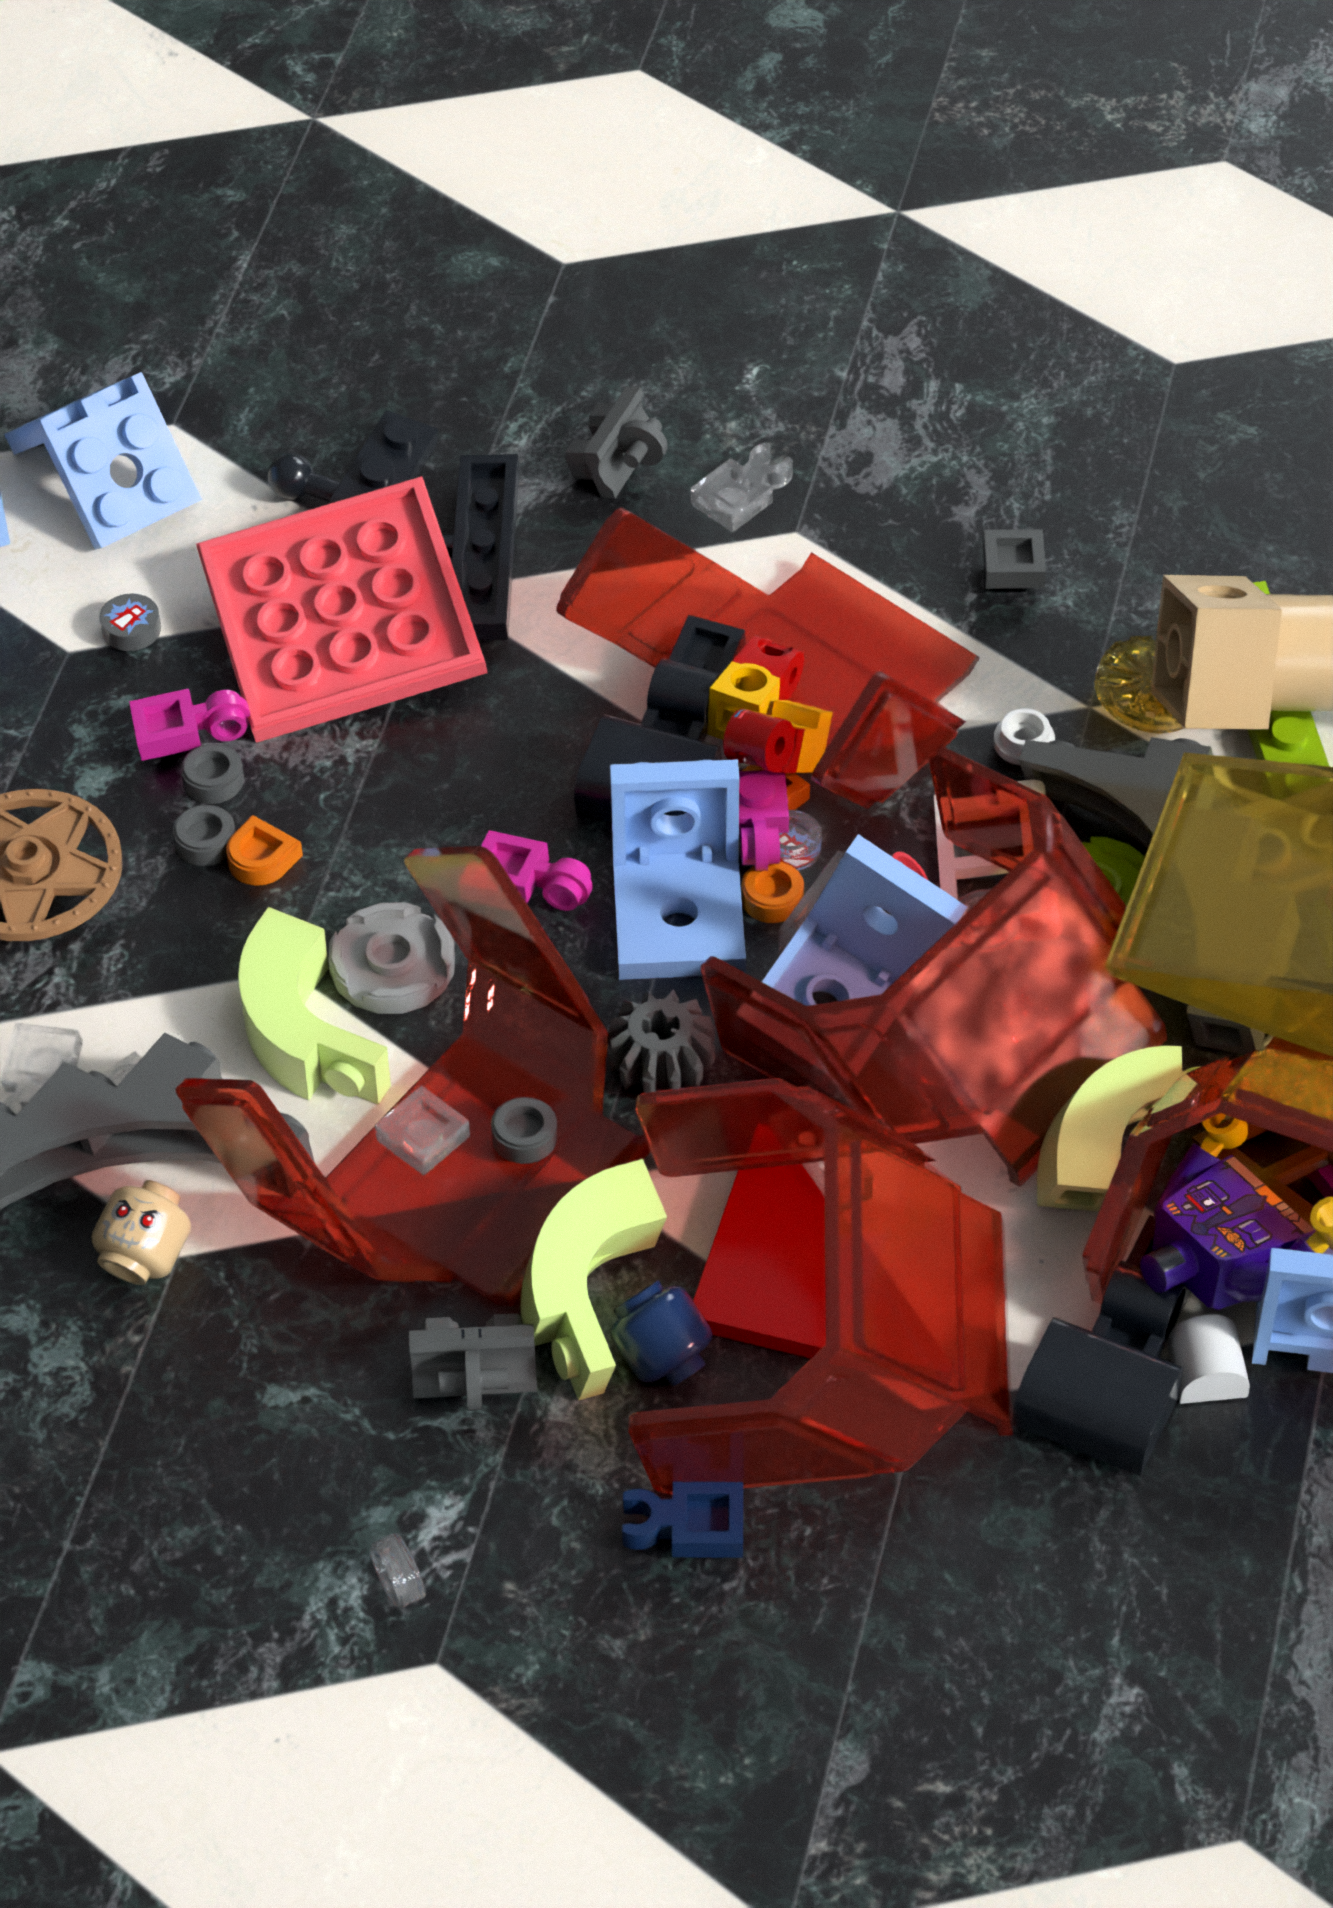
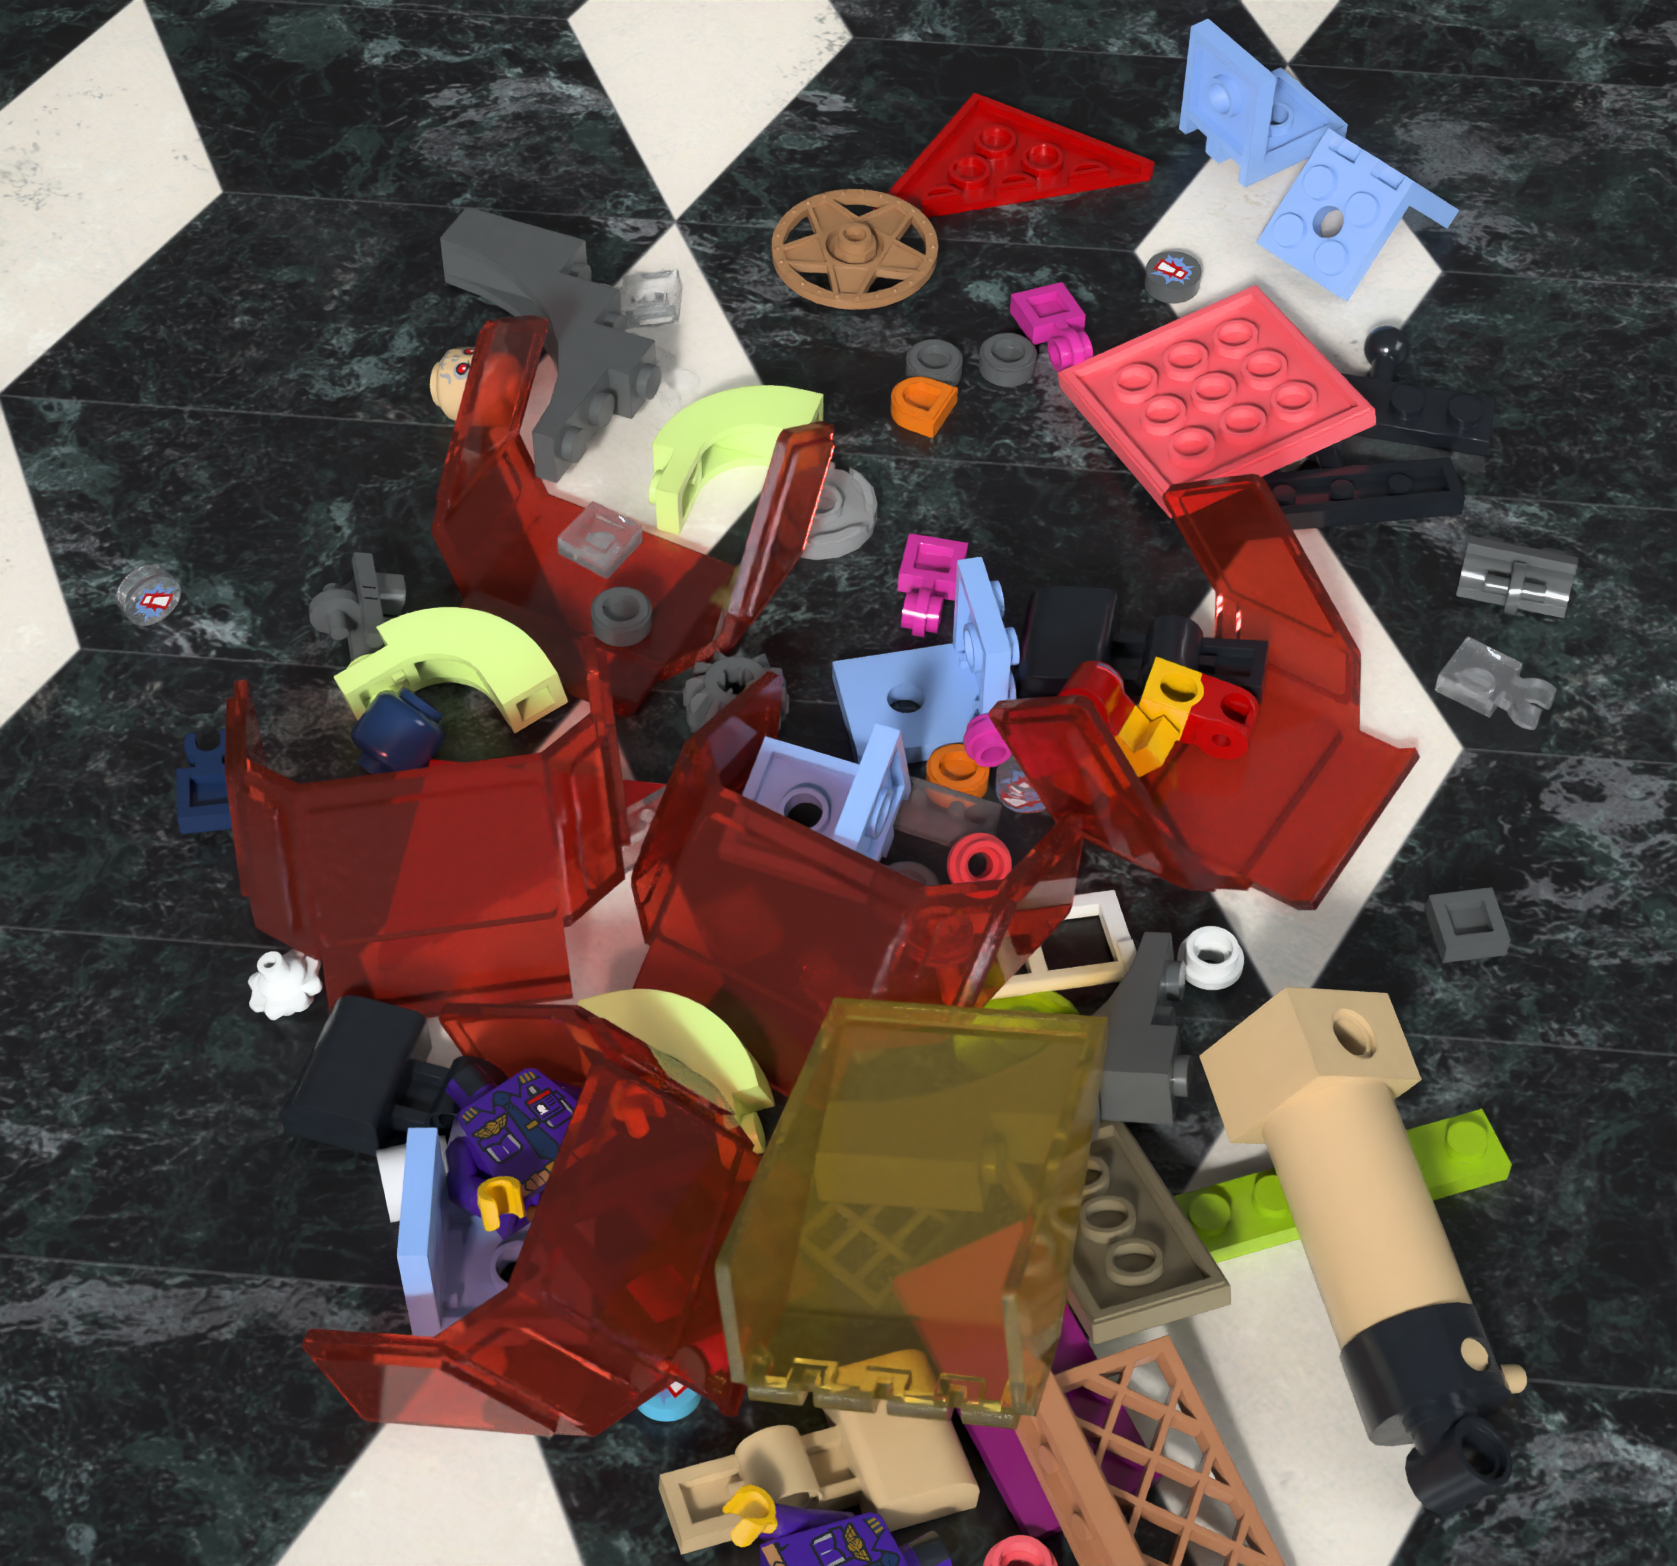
camera: 80 degrees right, 0 degrees up
(970, 1458) = (284, 983): none -> white plant

